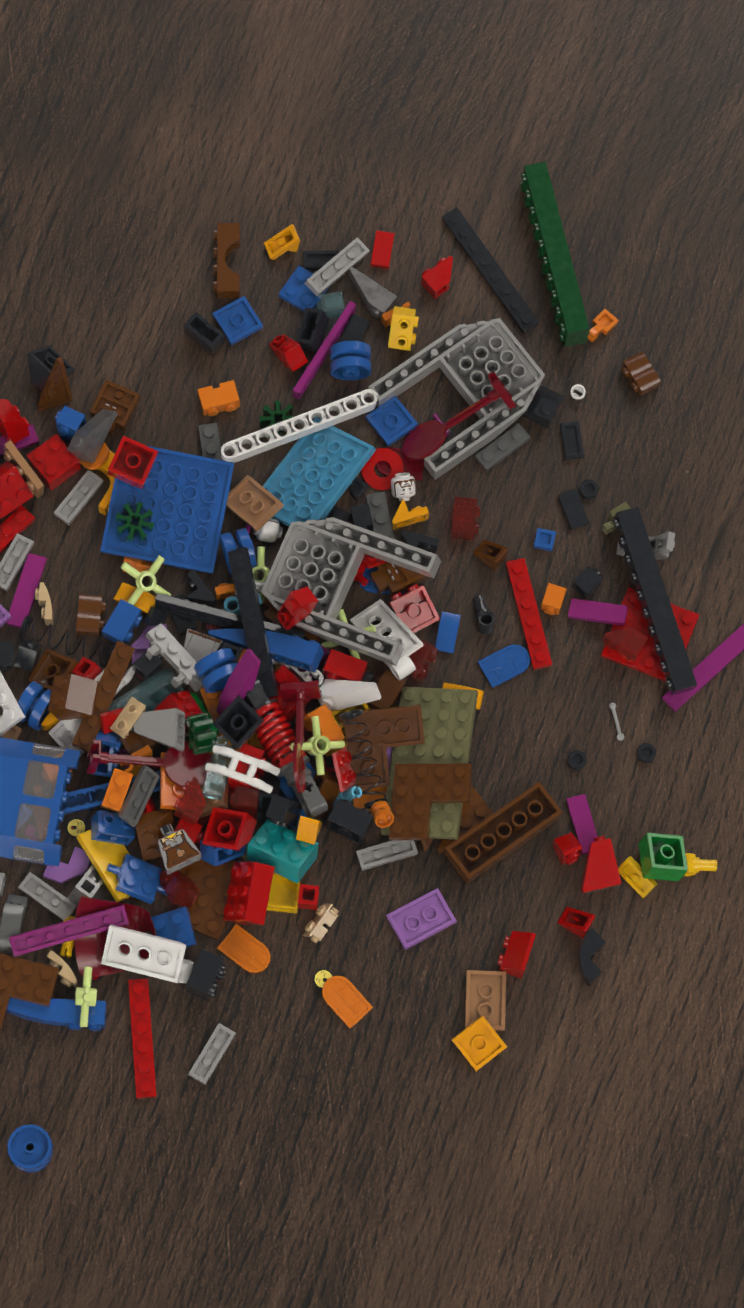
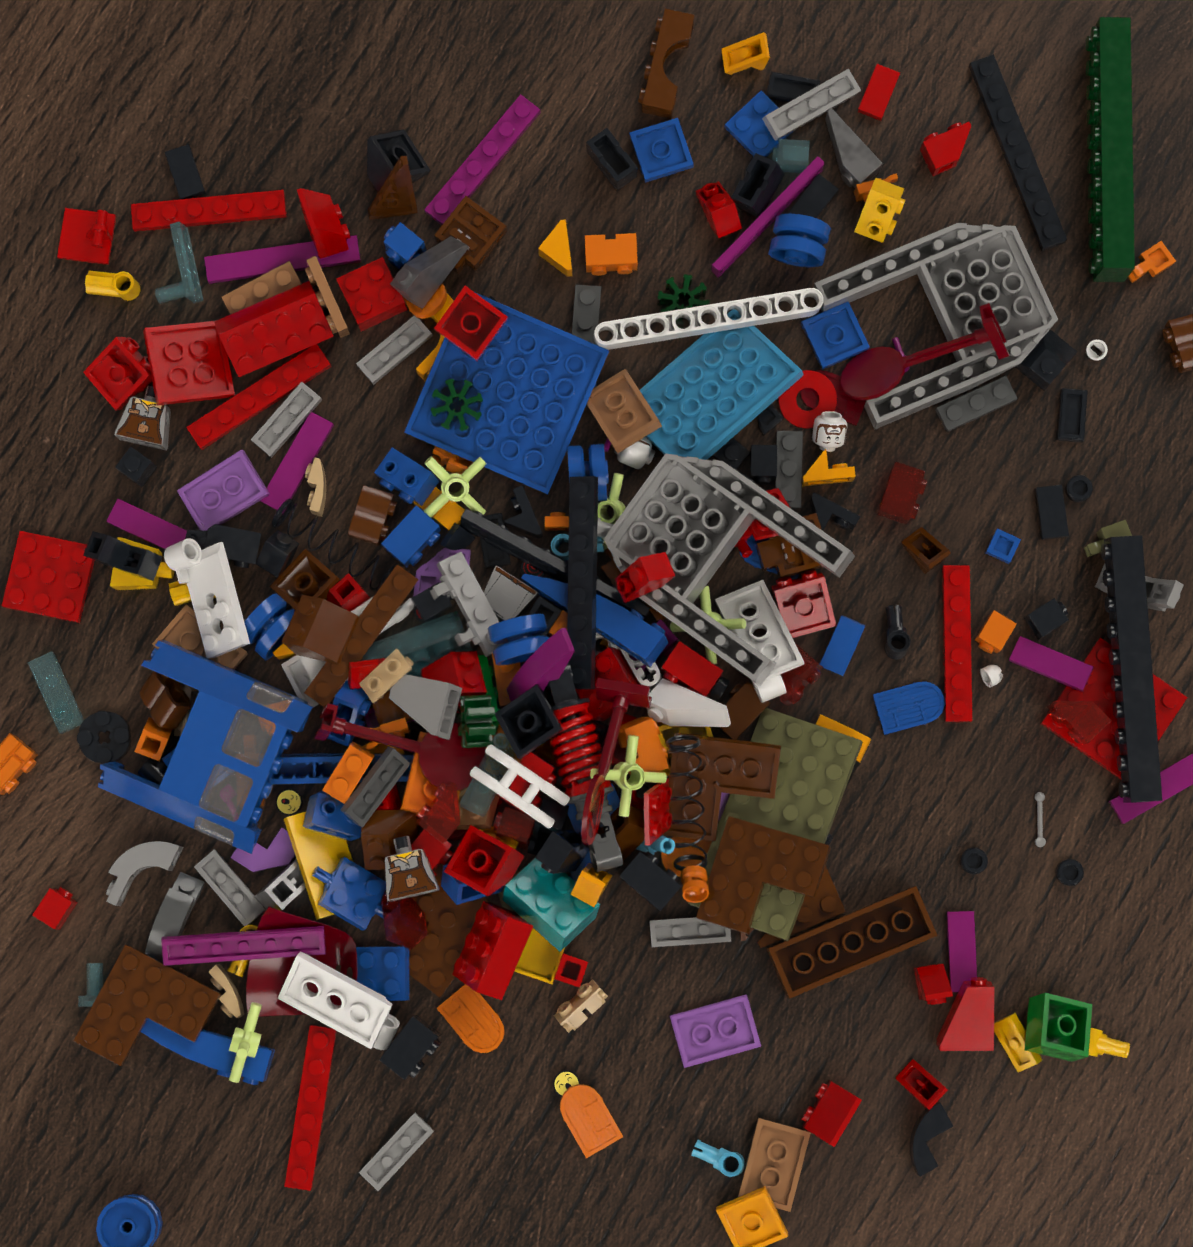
camera: 20 degrees right, 10 degrees up
(108, 582) = (406, 477): none -> blue brick
(111, 353) = (483, 159): none -> magenta plate
(179, 404) = (556, 249): none -> light orange slope
(445, 1005) = (718, 1158): none -> medium azure pin
(557, 629) = (991, 675): none -> white hinge

